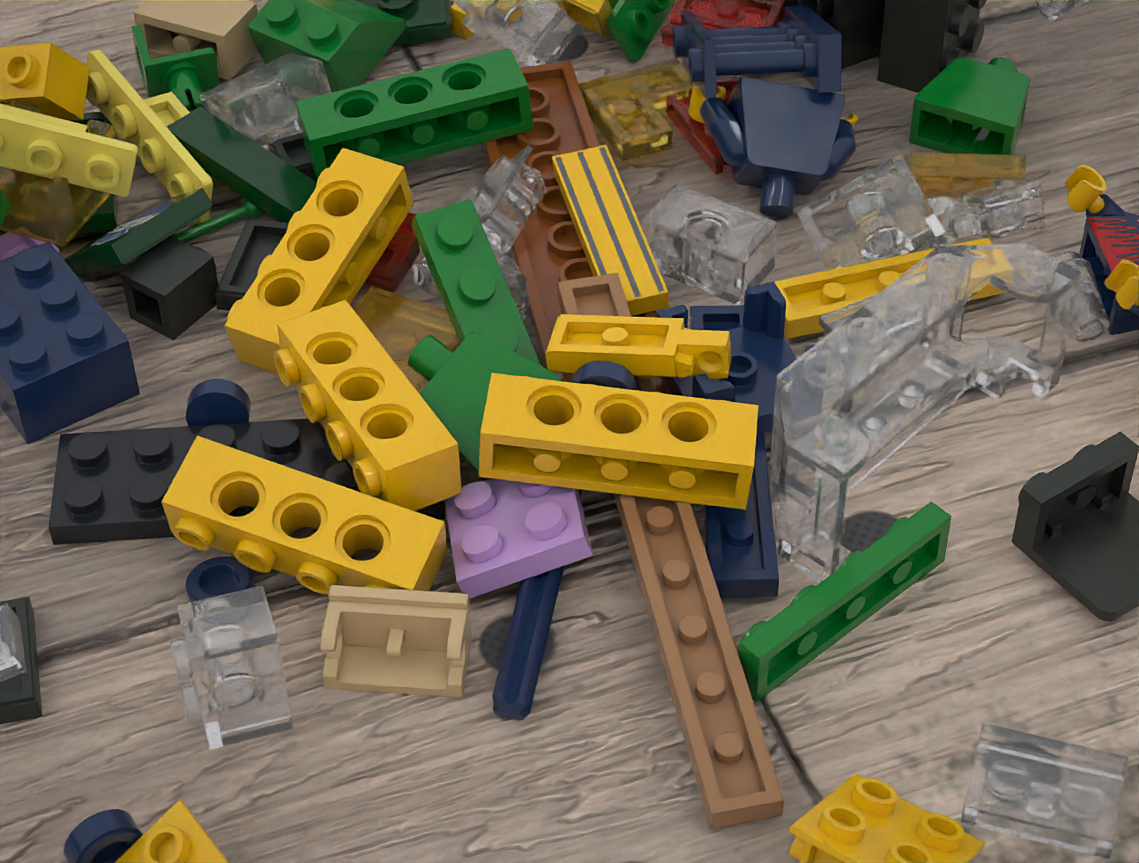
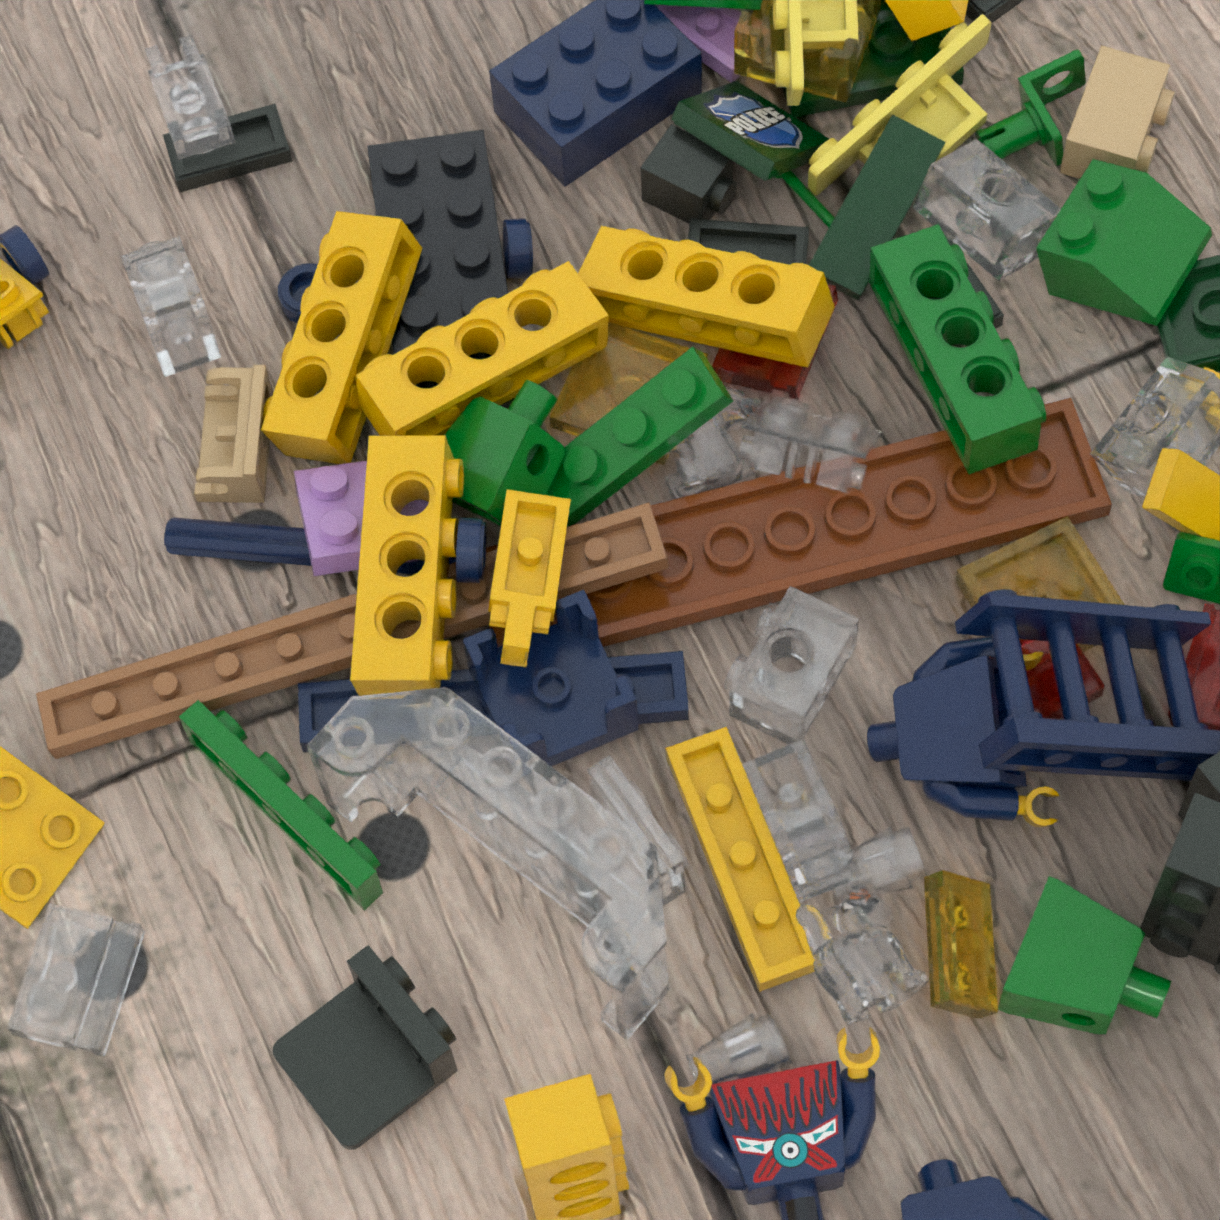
camera: 90 degrees right, 20 degrees up
(609, 226) = (786, 556): yellow tile -> none

